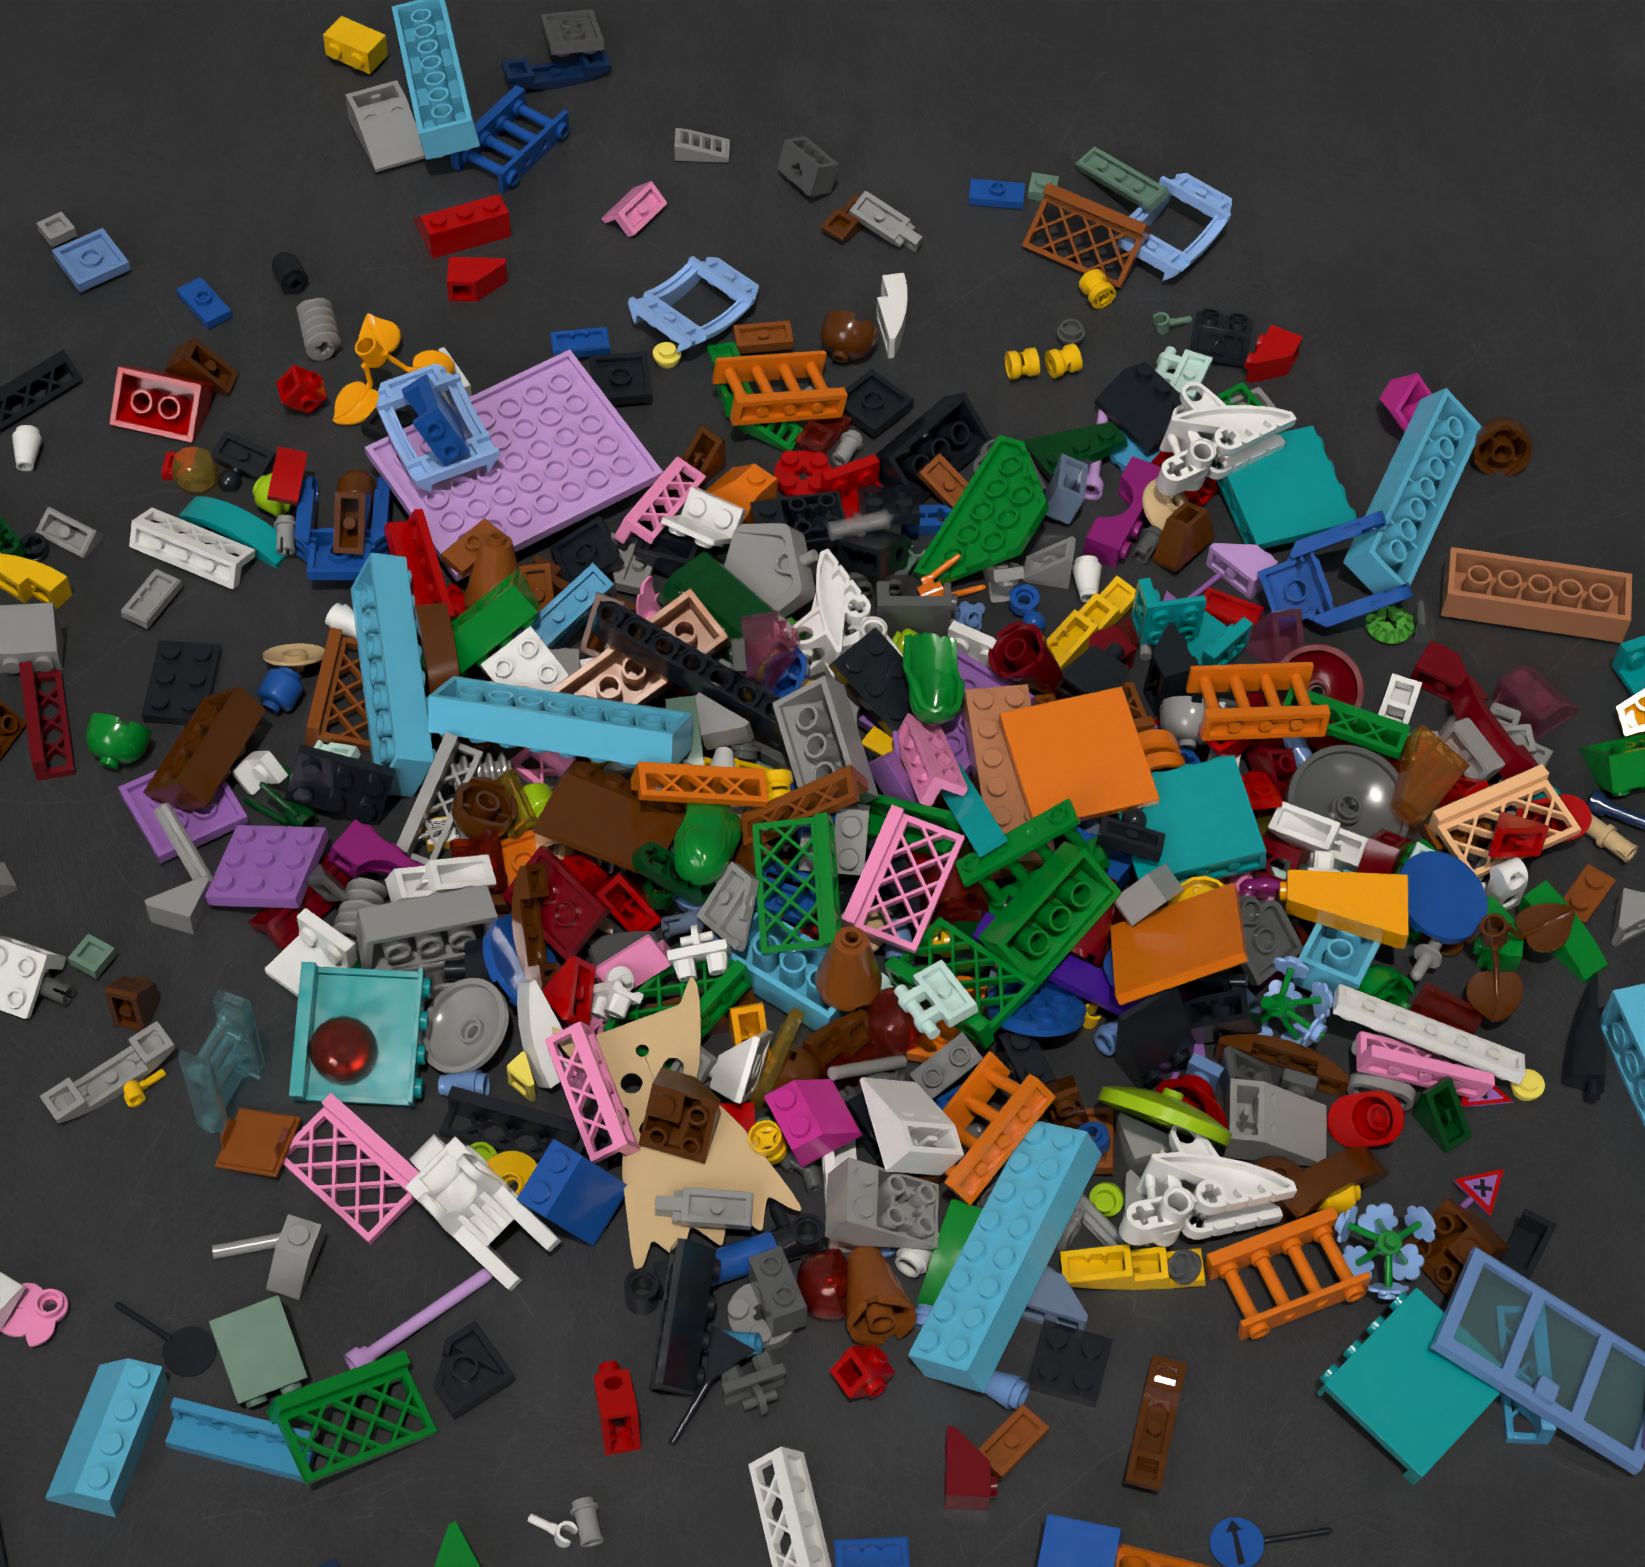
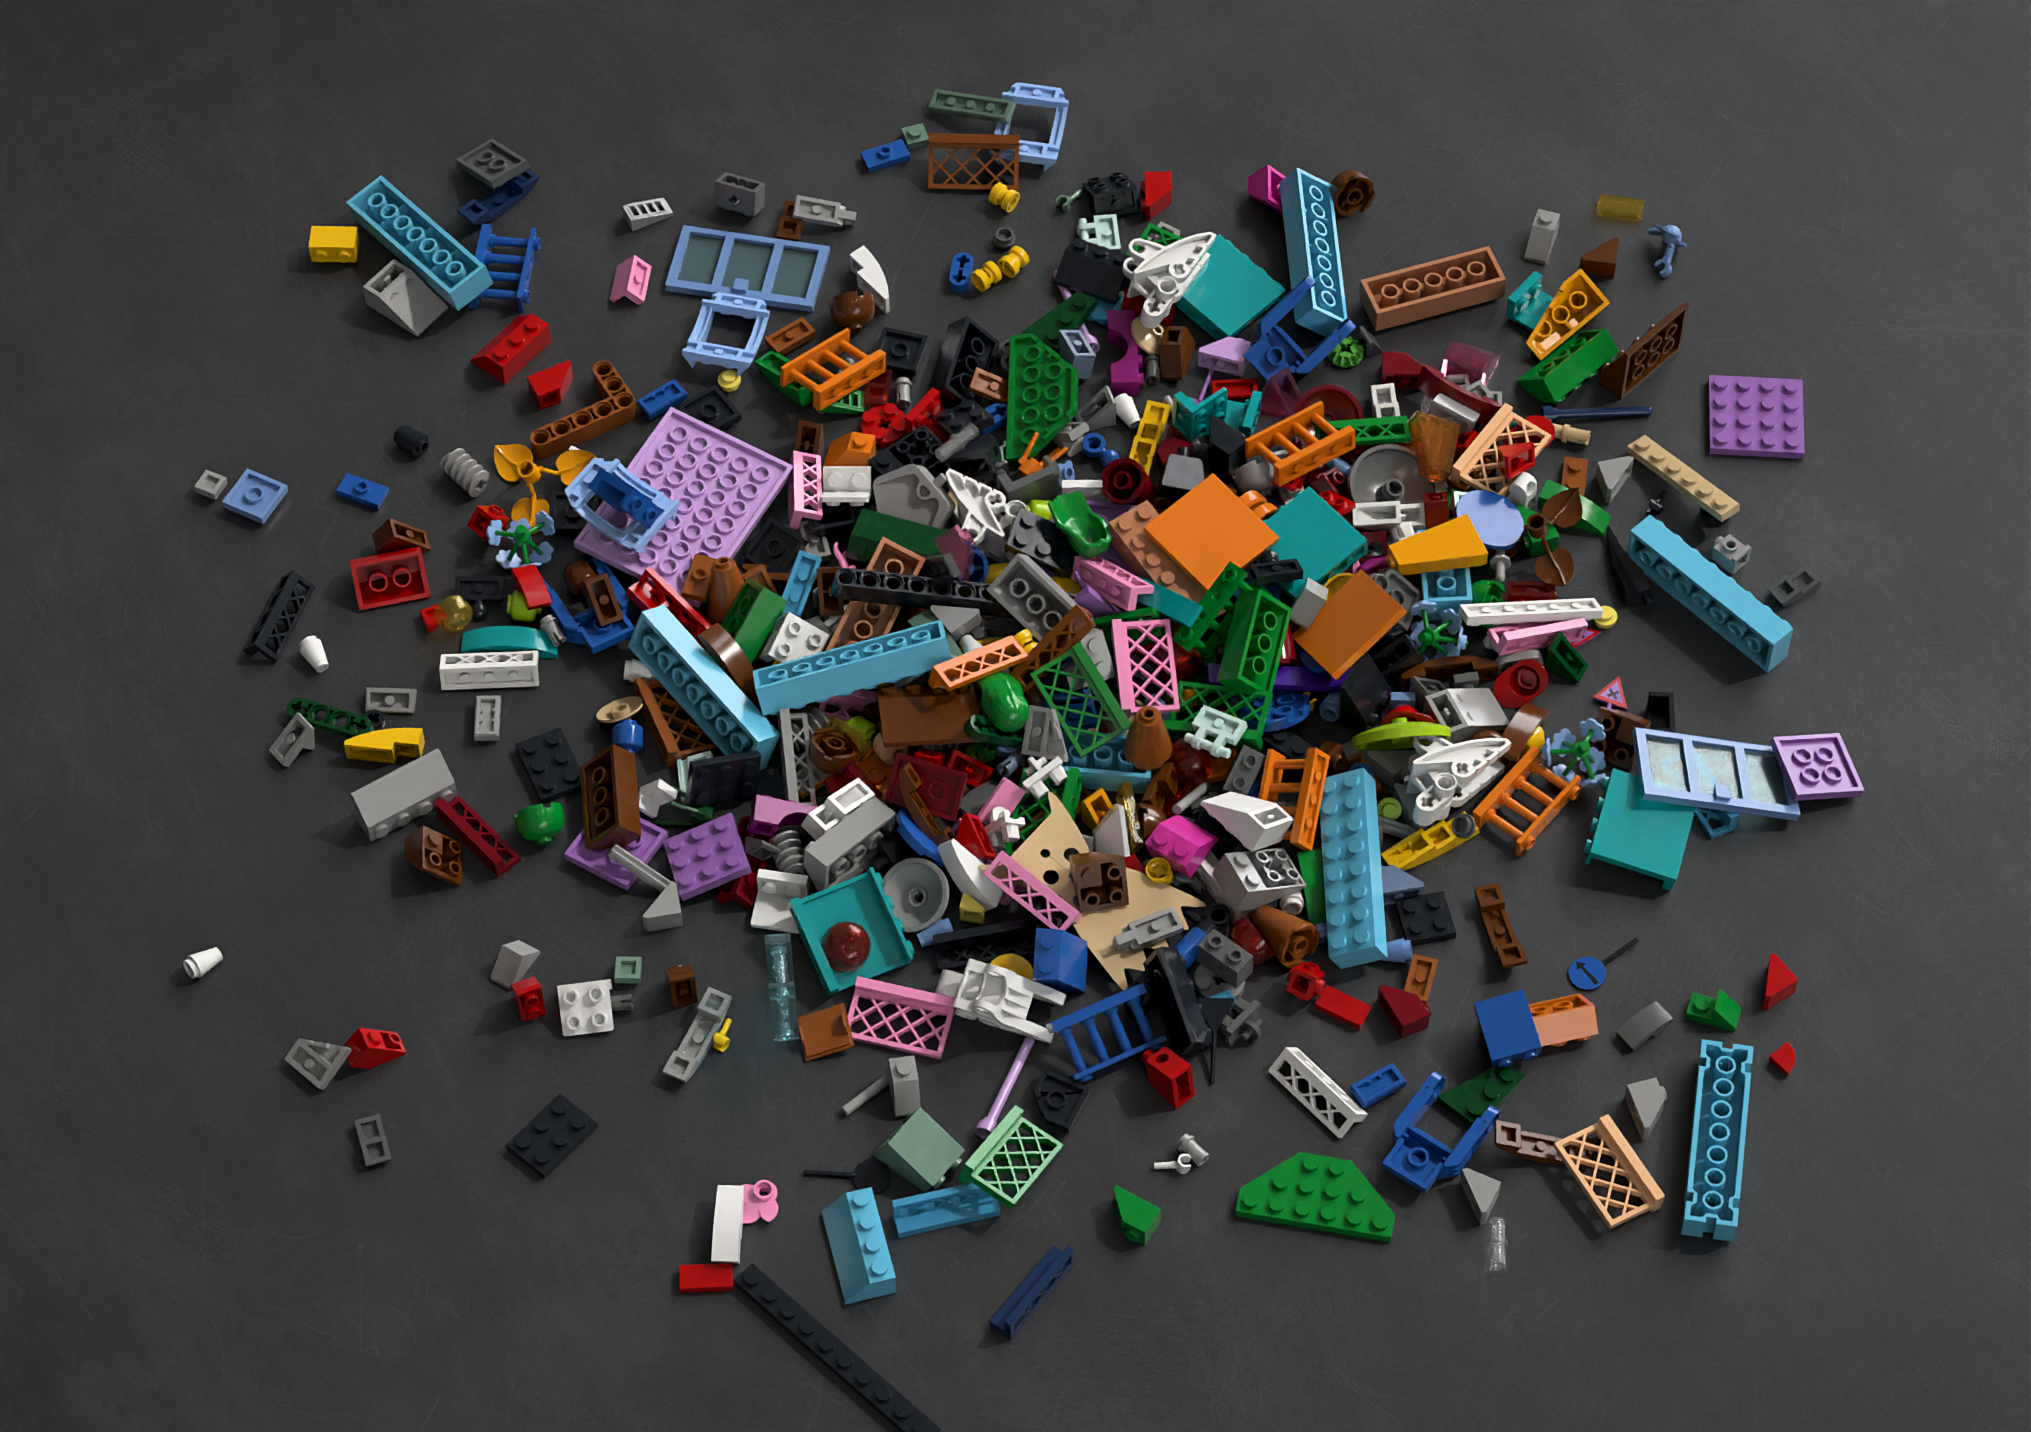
camera: 25 degrees left, 0 degrees up
(324, 418) = (521, 536): none -> light blue plant
(487, 332) = (591, 421): none -> dark orange beam
(592, 1284) = (1086, 1018): none -> blue fence
(771, 247) = (748, 266): none -> door
(894, 1428) = (1343, 1007): none -> red tile
(994, 345) = (957, 272): none -> blue beam

